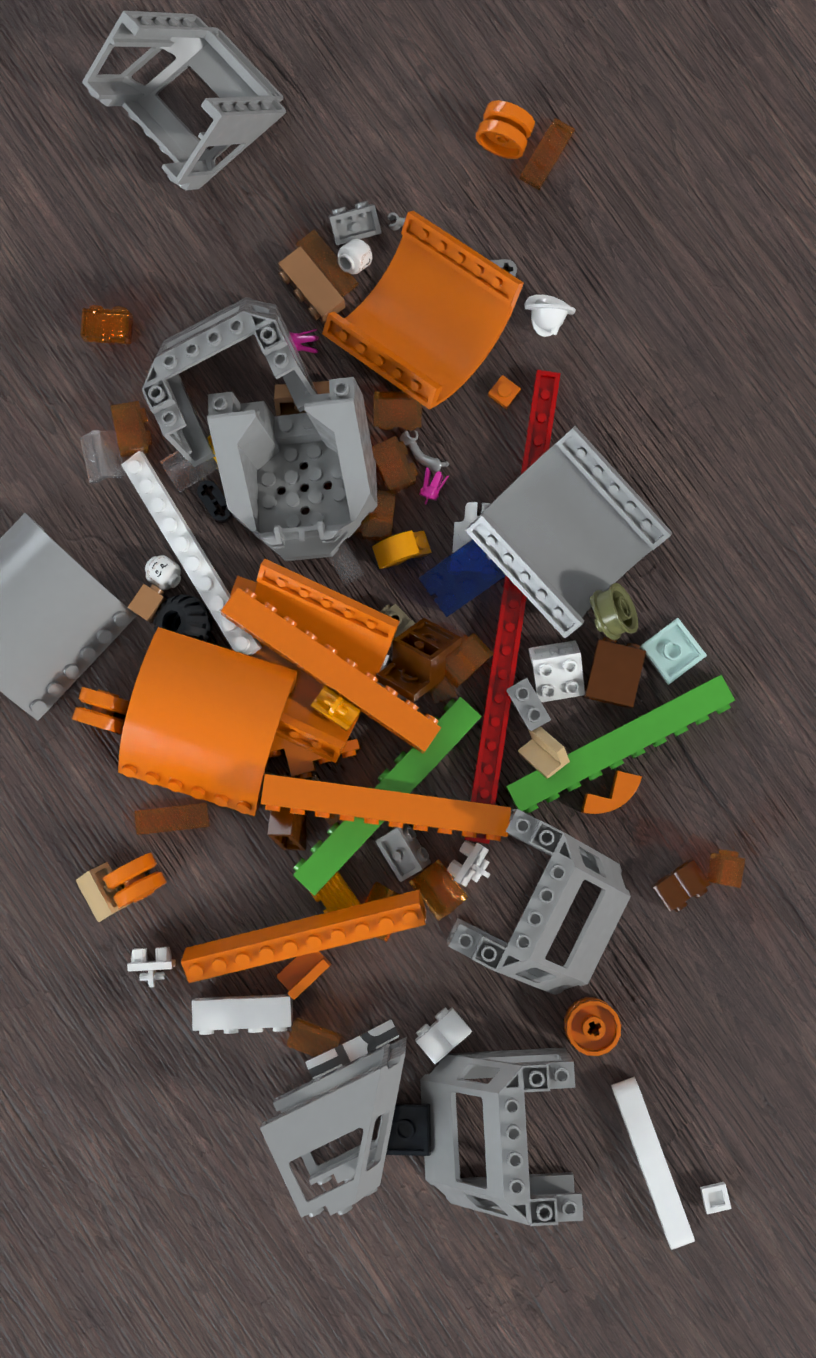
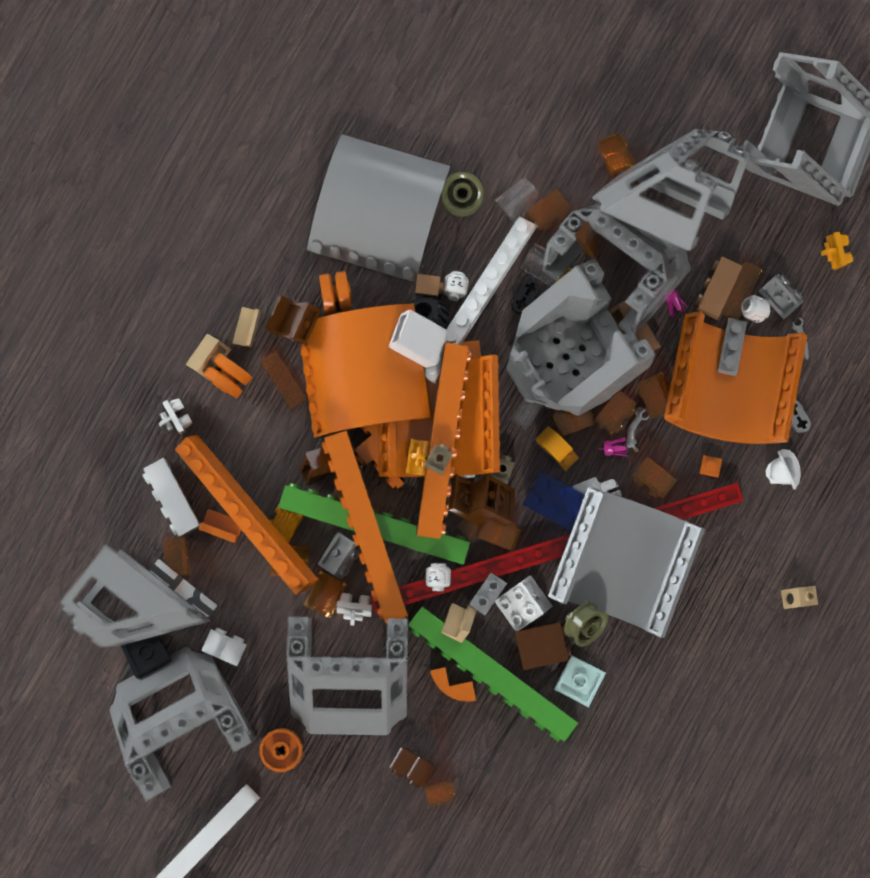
camera: 60 degrees right, 0 degrees up
(78, 517) = (462, 206): none -> olive wheel
(91, 831) = (246, 327): none -> tan panel
(108, 774) = (292, 320): none -> reddish brown panel
(175, 263) = (679, 178): none -> light grey piece
(183, 389) = (588, 239): none -> reddish brown slope
(201, 640) = (418, 339): none -> white brick
(334, 140) = (835, 250): none -> light orange hips
(350, 693) = (433, 464): none -> dark tan brick
(384, 302) = (732, 347): none -> light grey plate
(482, 751) = (438, 576): none -> white head
(487, 459) = (653, 478): none -> clear orange brick
(696, 360) = (802, 597): none -> tan bracket

